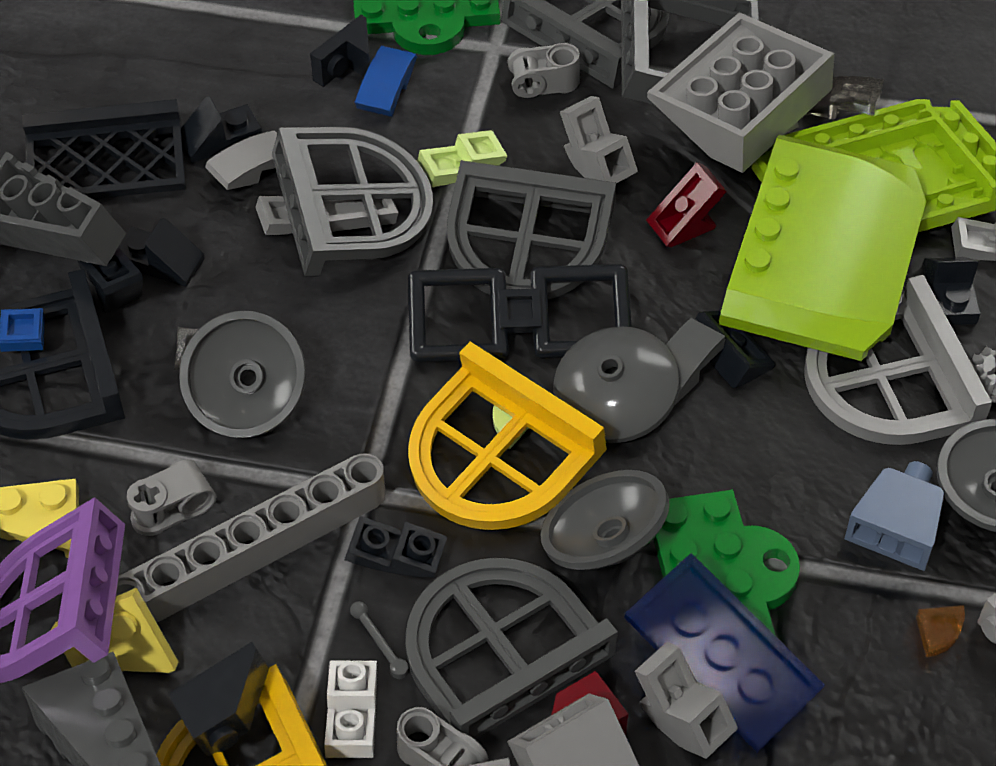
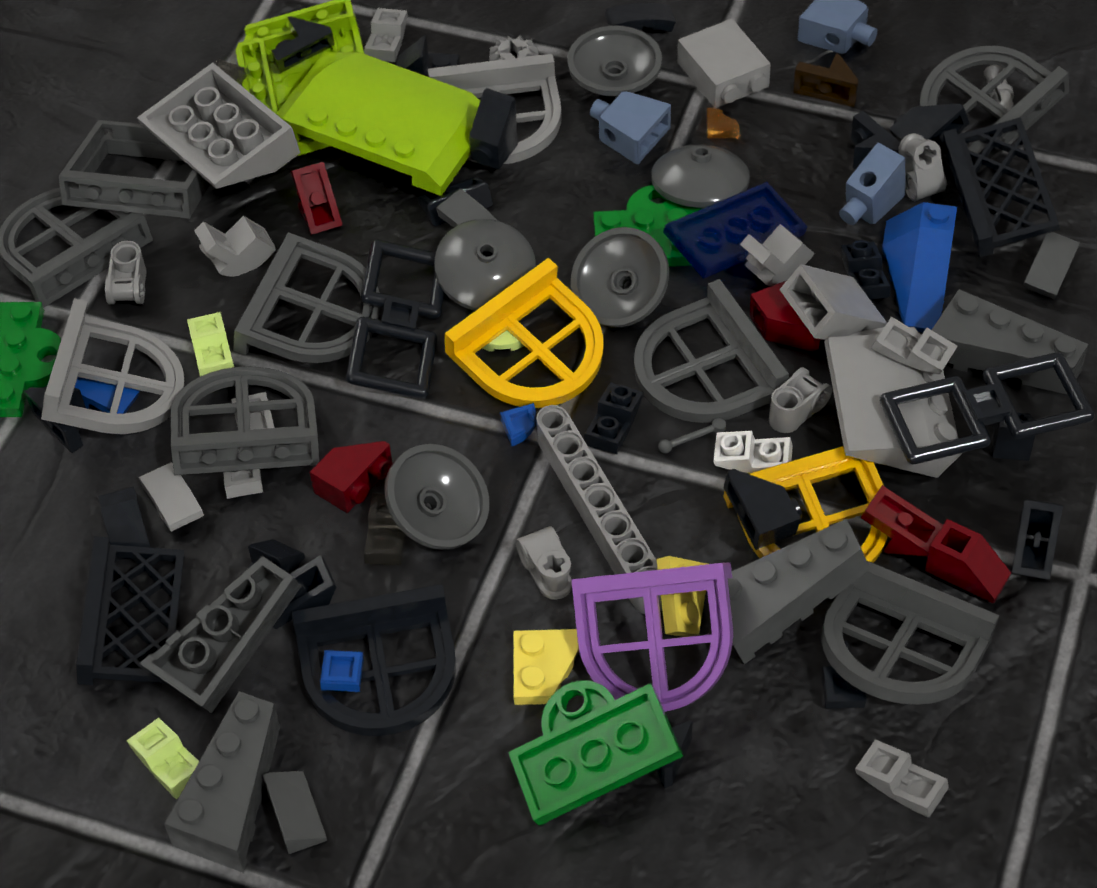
camera: 80 degrees left, 0 degrees up
(284, 295) = (350, 473): none -> dark red slope
(385, 449) = (519, 423): none -> blue tile
(392, 33) = (69, 367): none -> light grey window
(813, 619) = (699, 175): none -> dark grey dish
(818, 351) = (494, 129): none -> black slope
(932, 150) = (308, 41): none -> black slope

